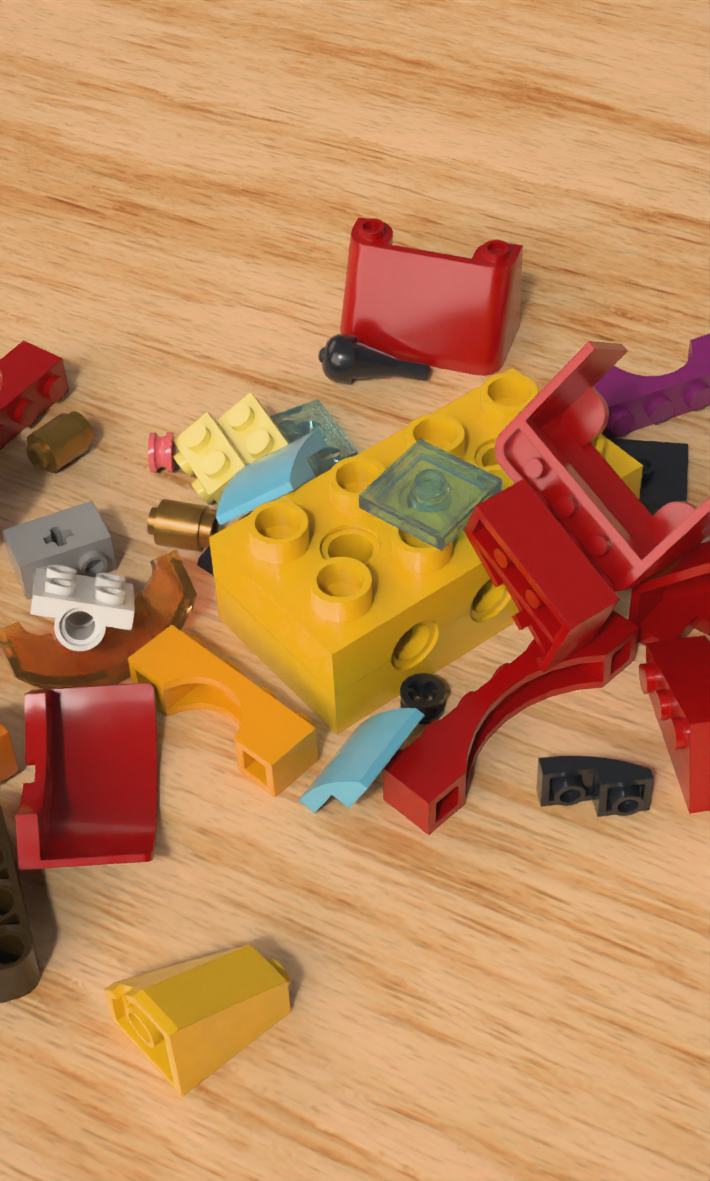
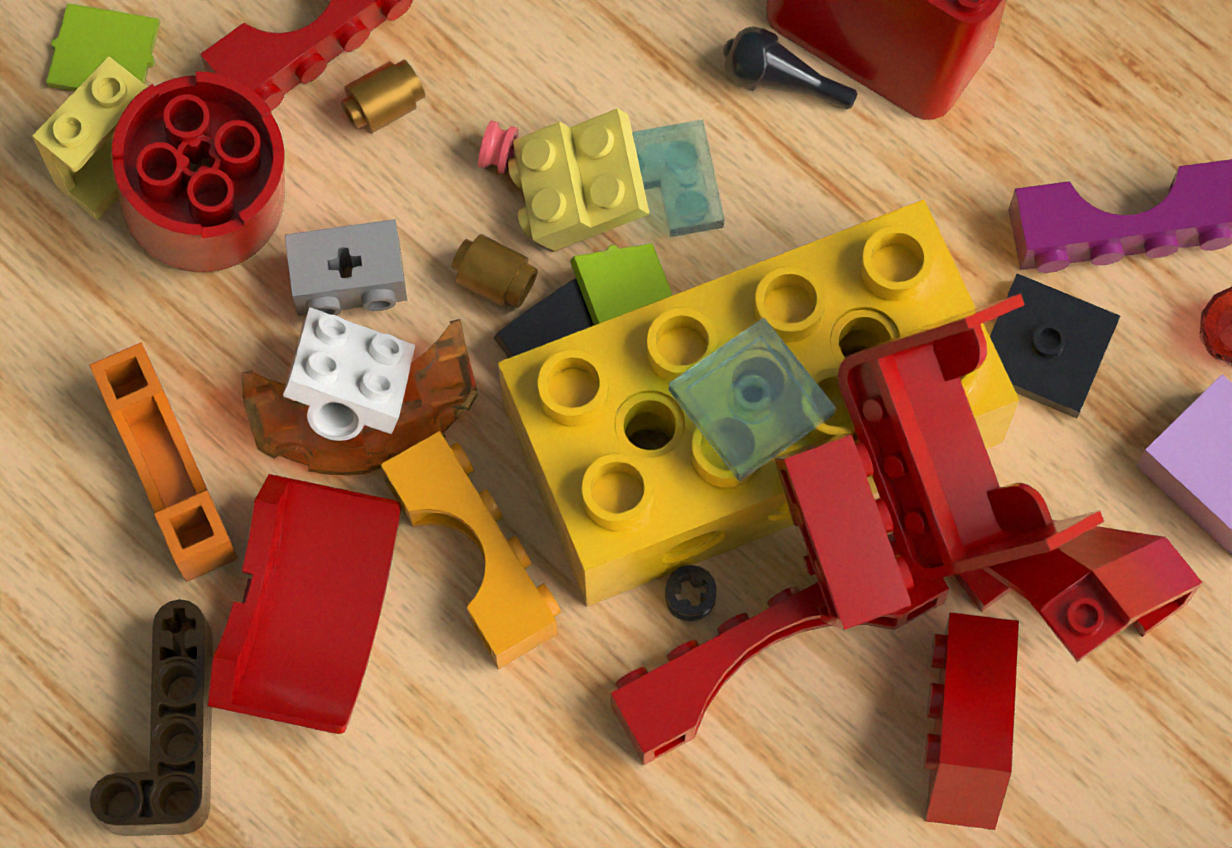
camera: 15 degrees right, 25 degrees up
(269, 477) = (596, 271): medium azure slope -> none
(361, 758) = (594, 671): medium azure slope -> none
(612, 784) = (850, 777): black slope -> none

